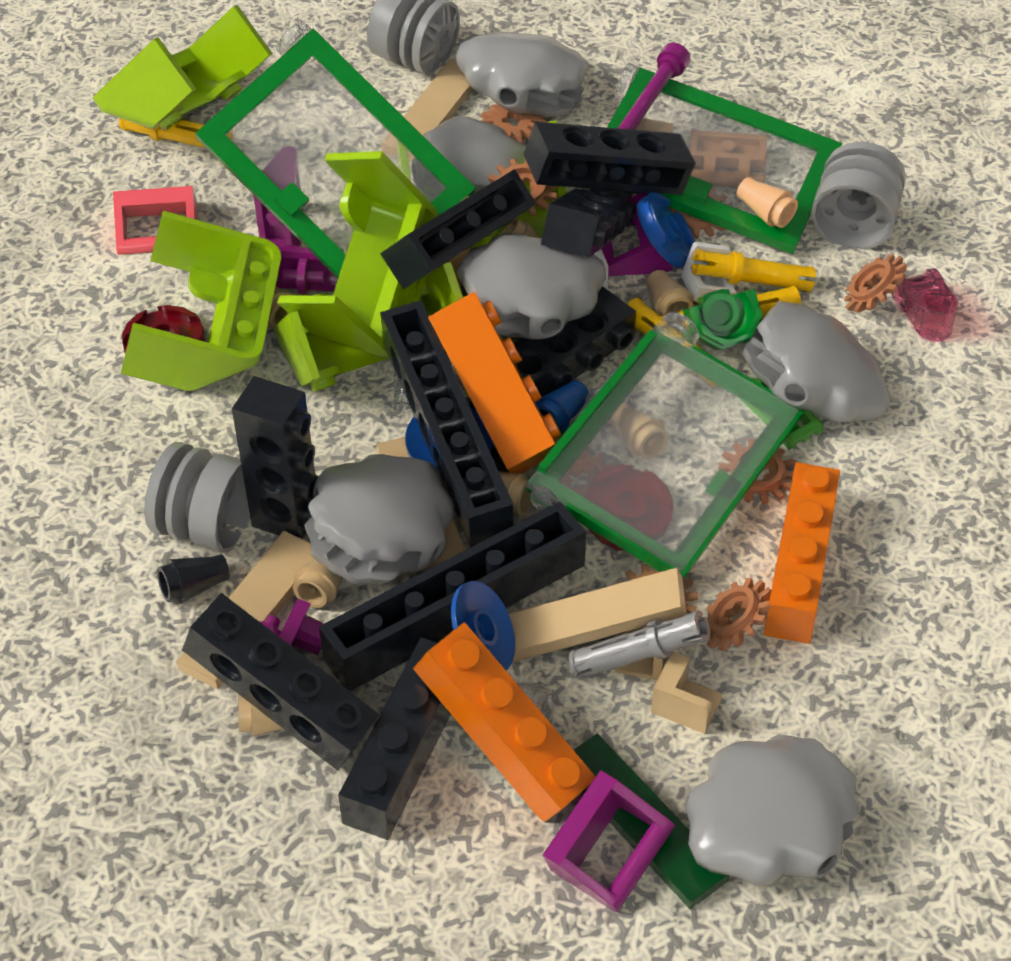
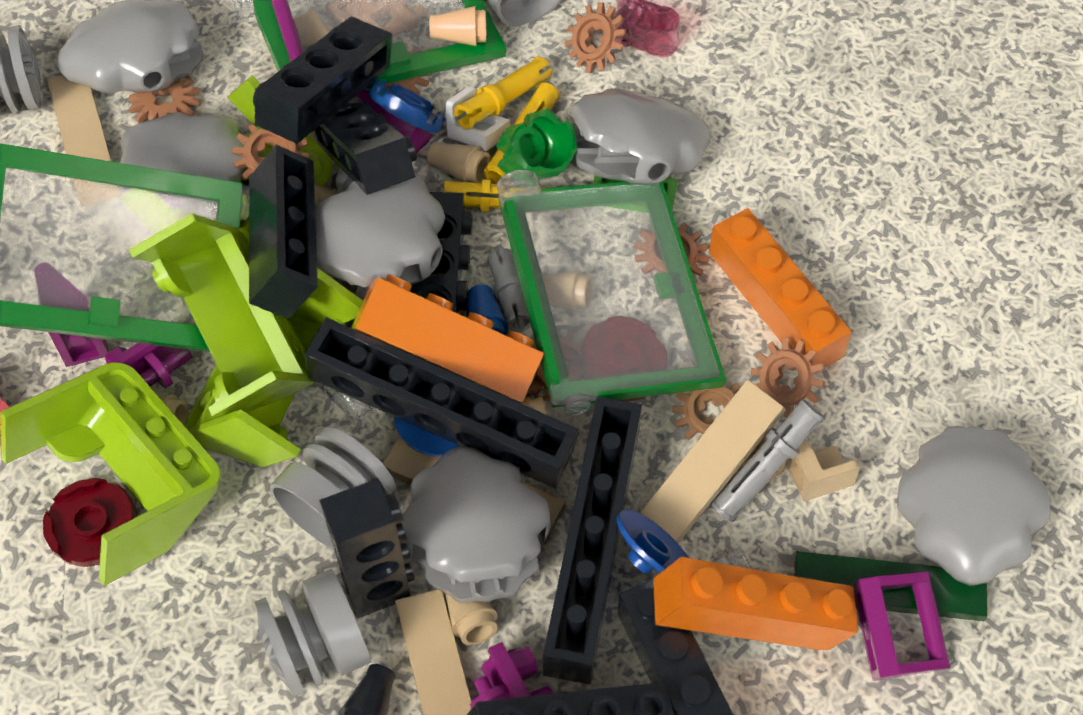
camera: 45 degrees left, 10 degrees up
(334, 419) = (331, 466): none -> light grey wheel

